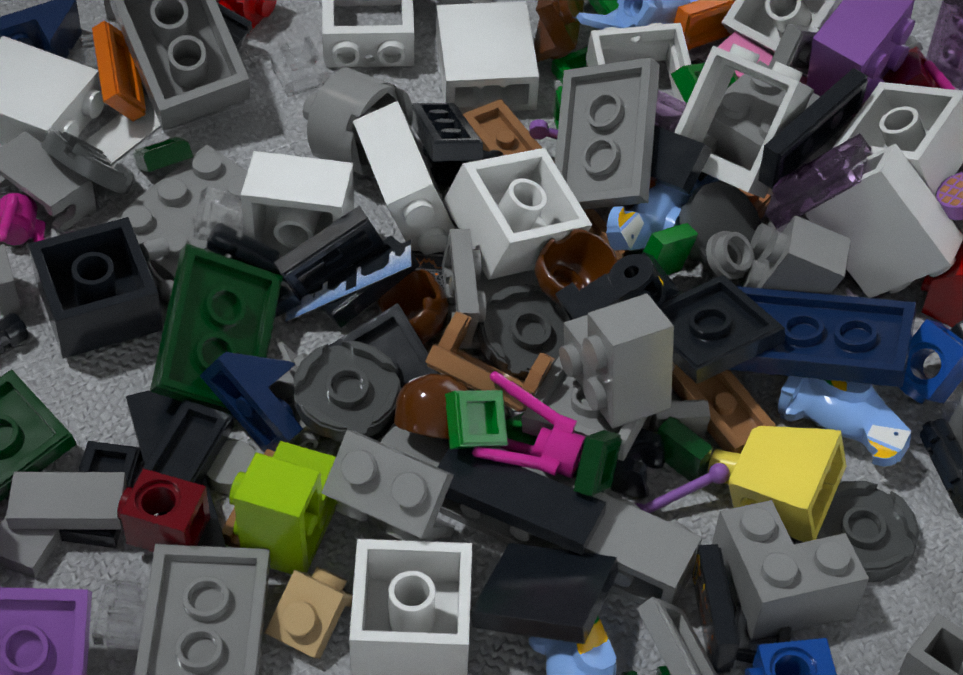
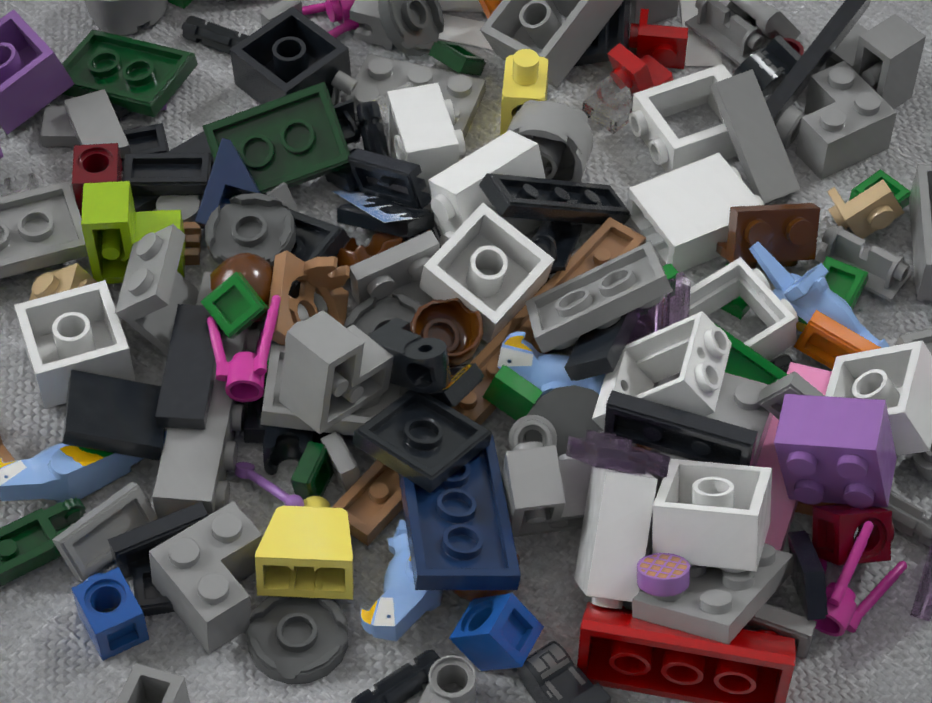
camera: 70 degrees right, 0 degrees up
(268, 113) = (523, 81): none -> light yellow torso
(284, 26) = (636, 72): none -> red bracket
(598, 462) = (233, 397): dark green tile -> none

